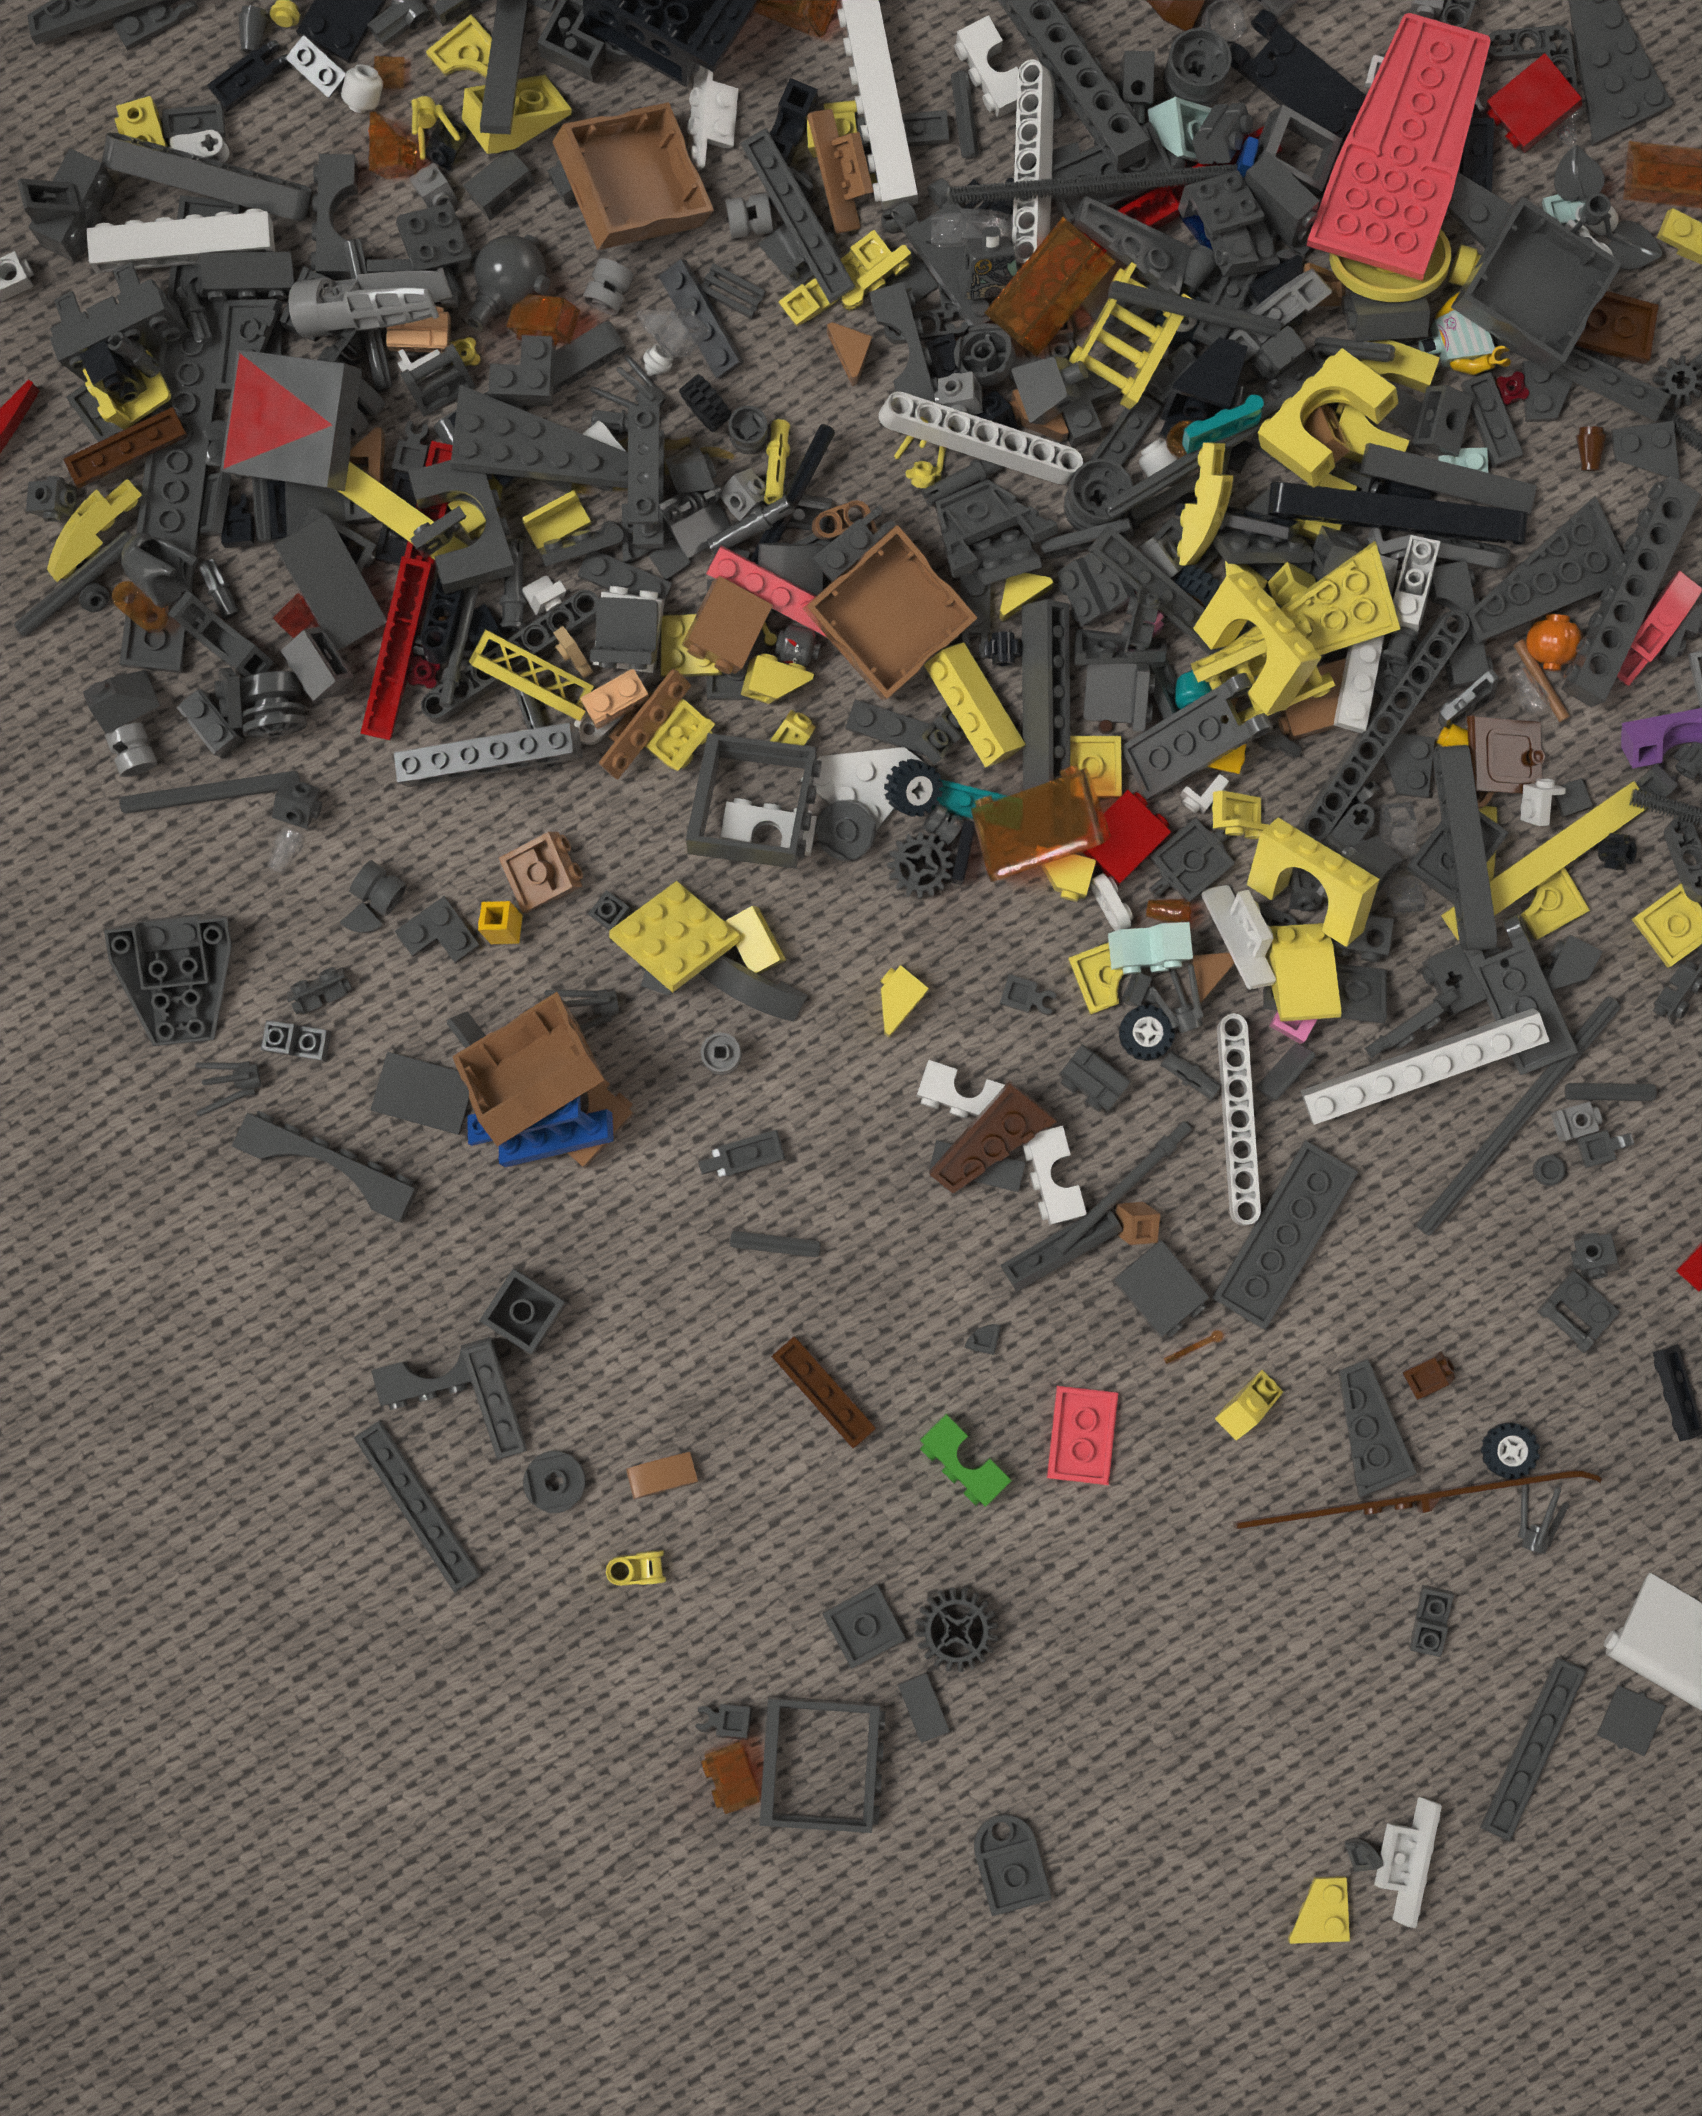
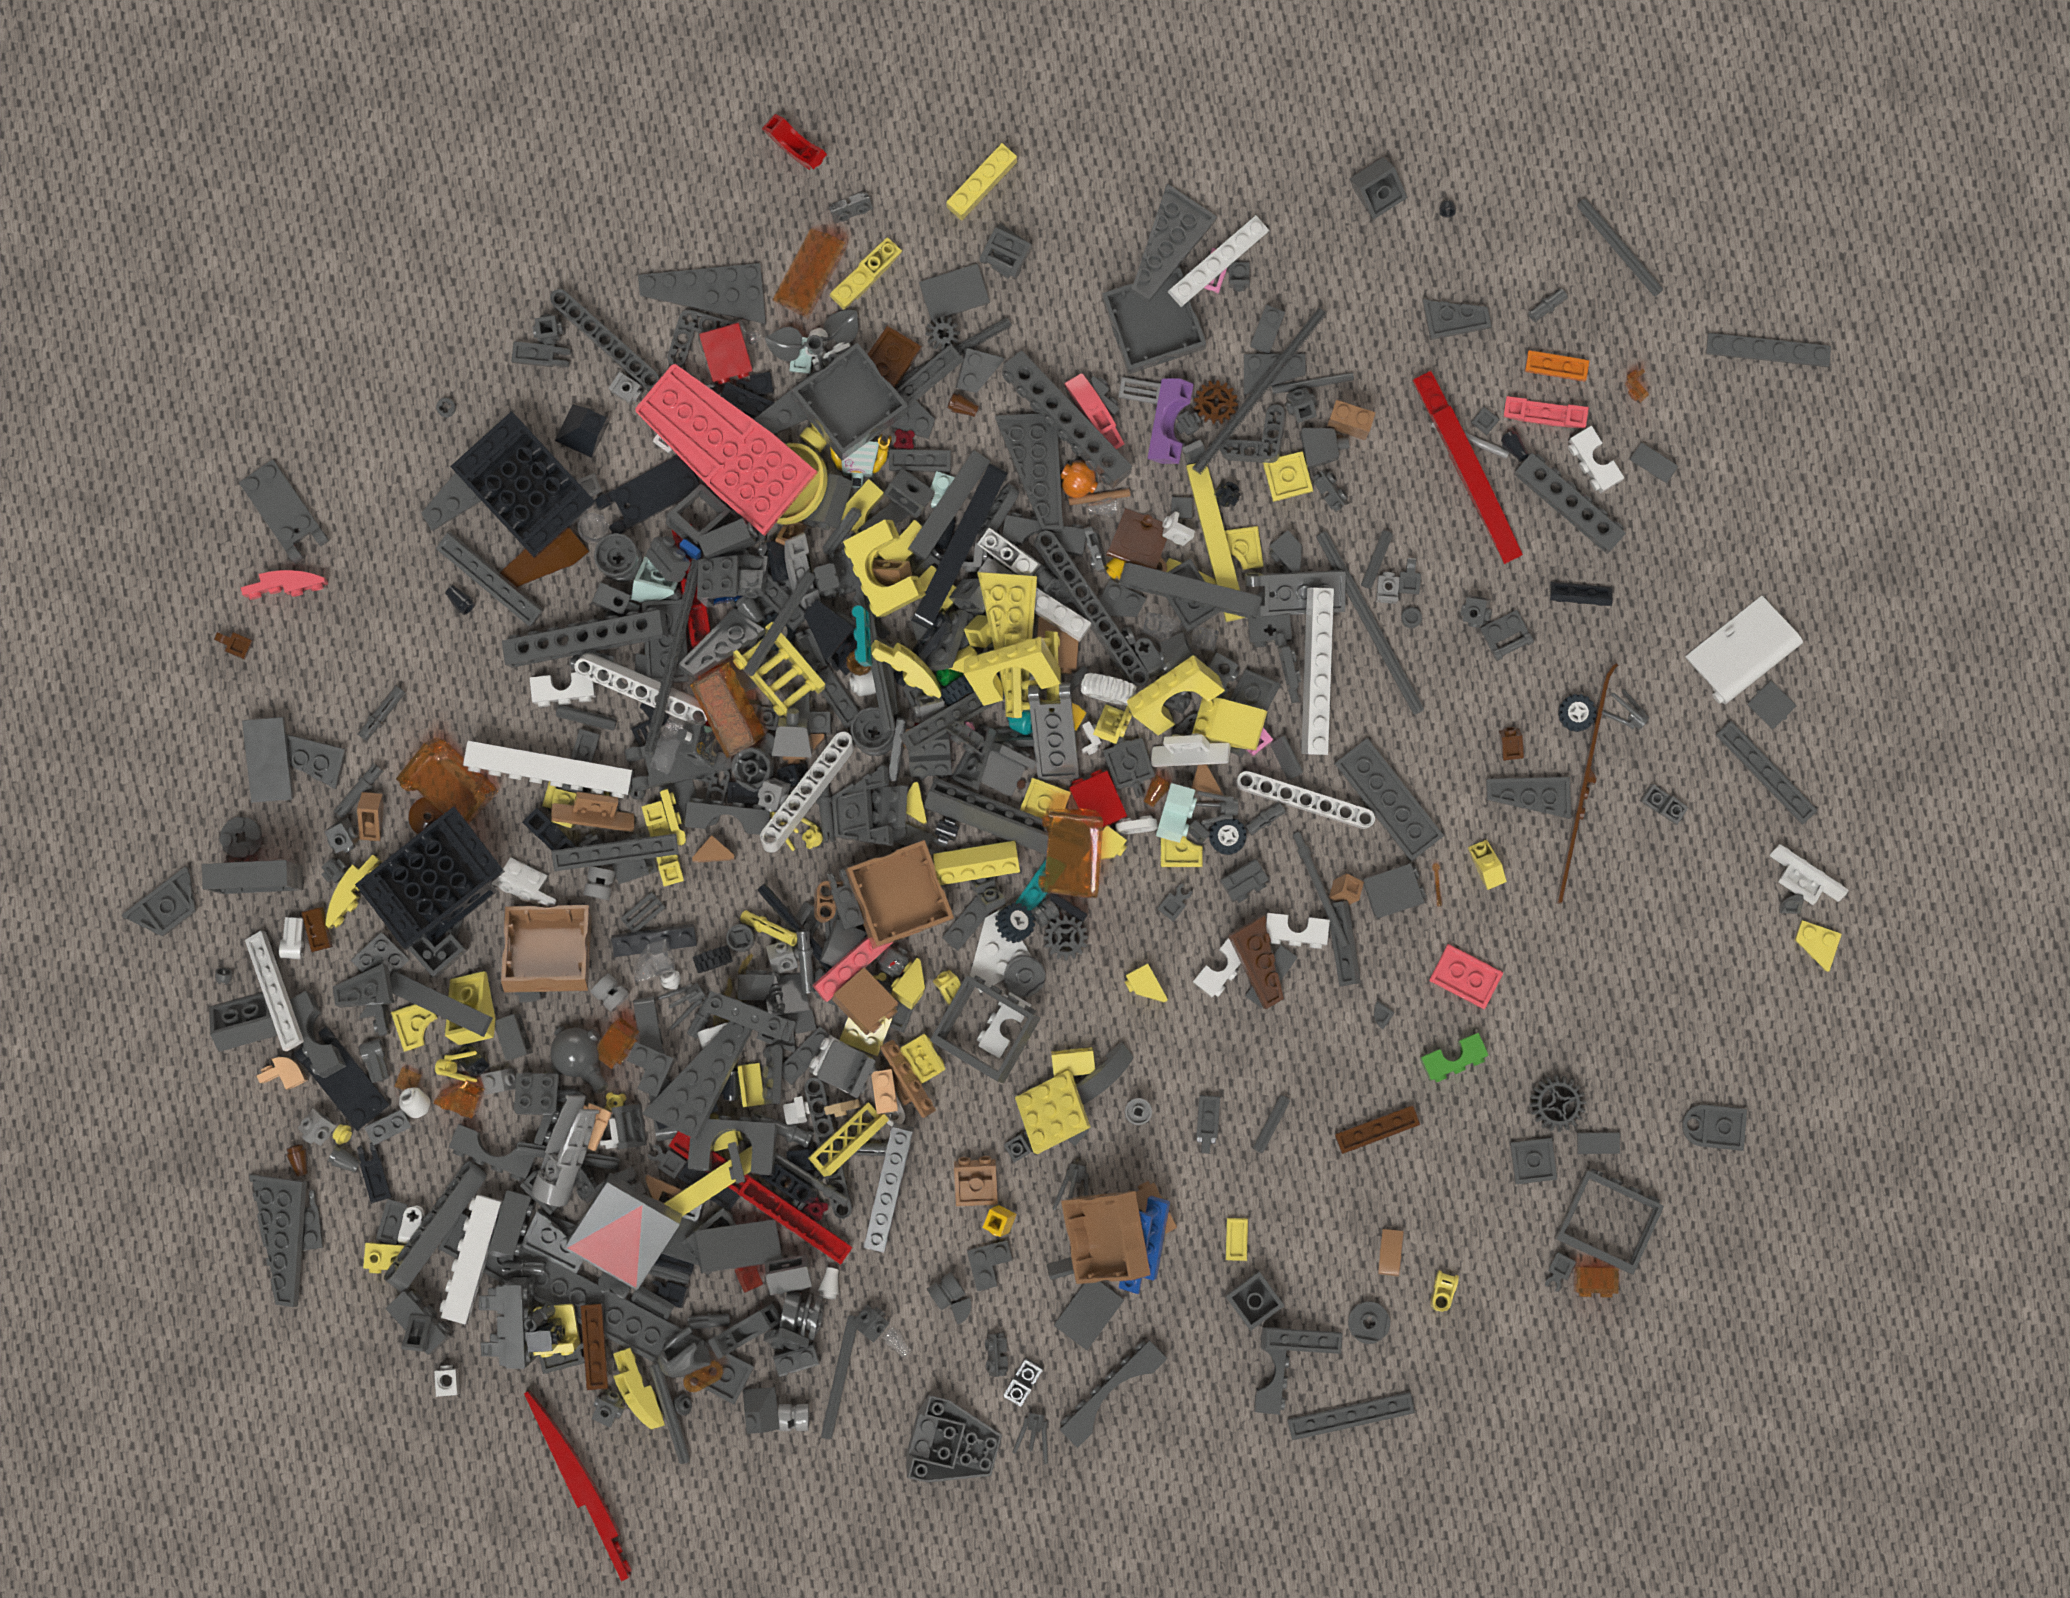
camera: 65 degrees left, 0 degrees up
(327, 730) = (829, 1285): none -> white cone
(544, 493) = (732, 1087): none -> black cone
(599, 1256) = (1236, 1239): none -> light yellow tile
(1214, 564) = (948, 676): none -> green cone
(1283, 787) = (1107, 688): none -> white gear
(1508, 168) = (759, 384): none -> black plate

